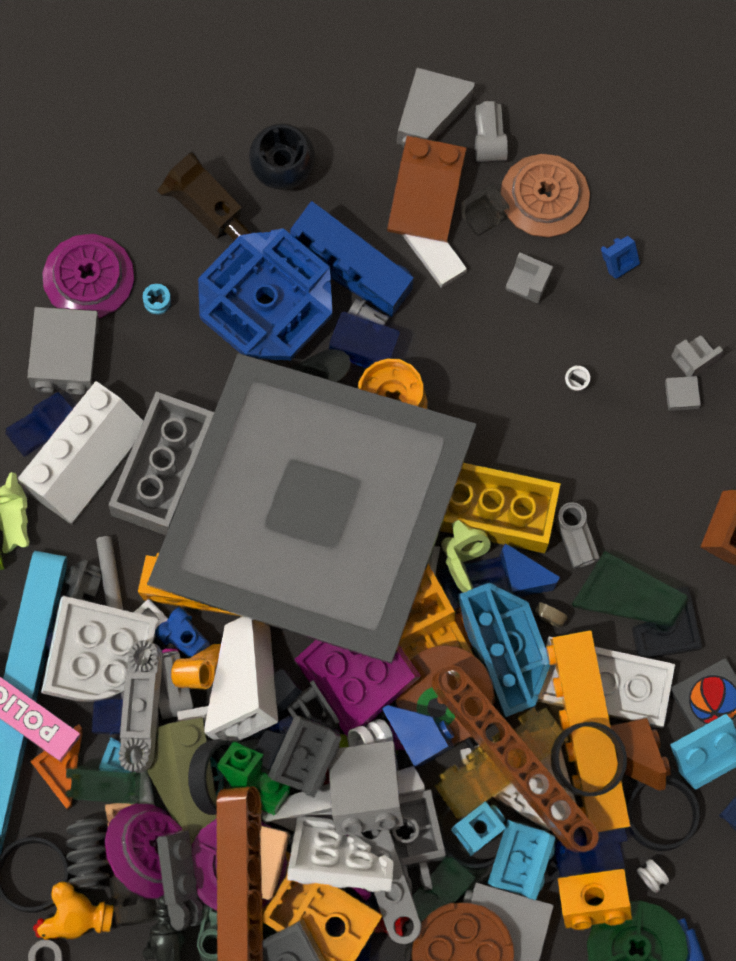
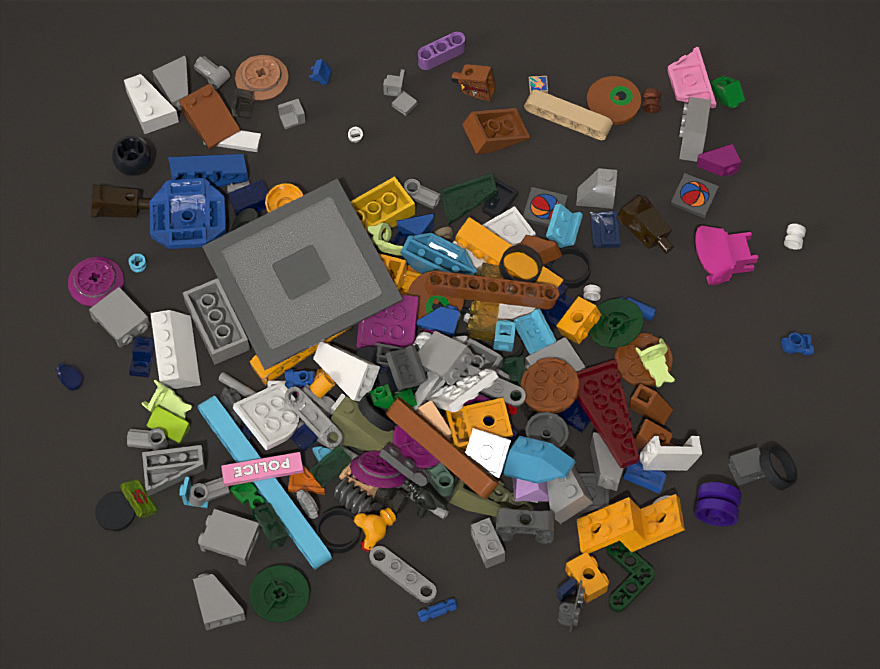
camera: 40 degrees left, 10 degrees down
(26, 807) = (307, 504): none -> light grey gear
(369, 108) = (149, 105): none -> white wedge

